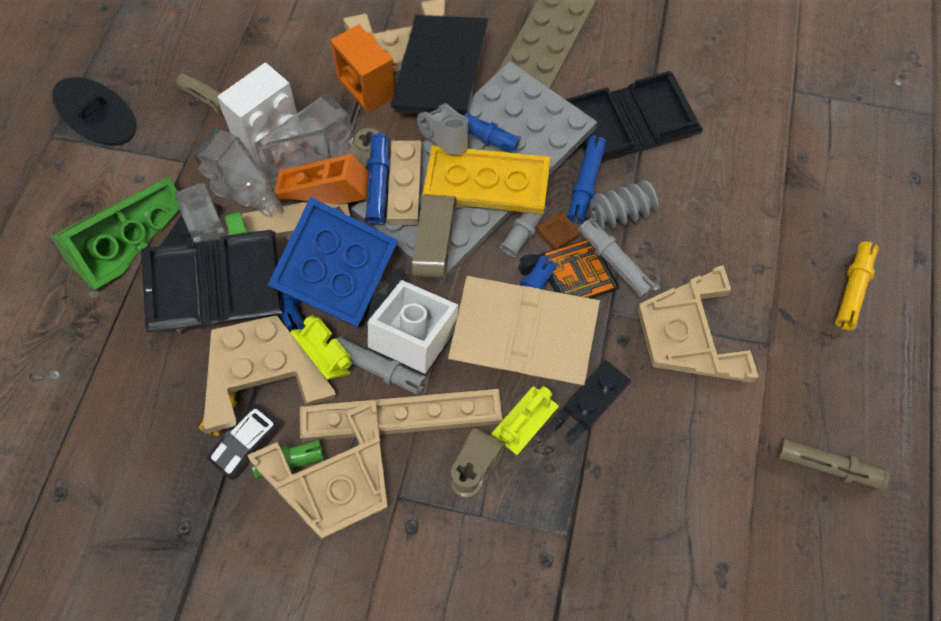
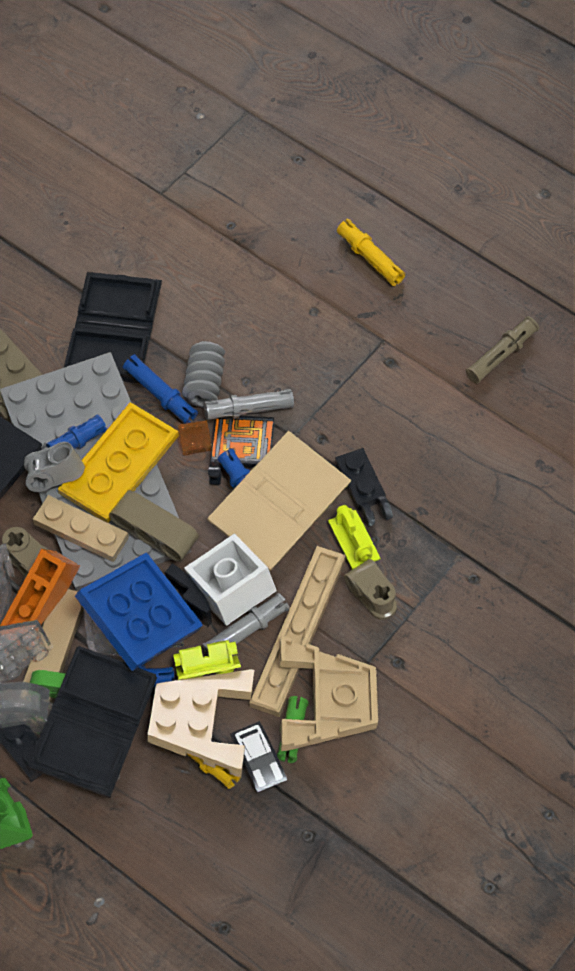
camera: 60 degrees left, 5 degrees down
(377, 168) = (55, 540): blue pin -> none
(521, 230) = (179, 463): light grey pin -> none
(680, 334) = (343, 394): tan wing -> none

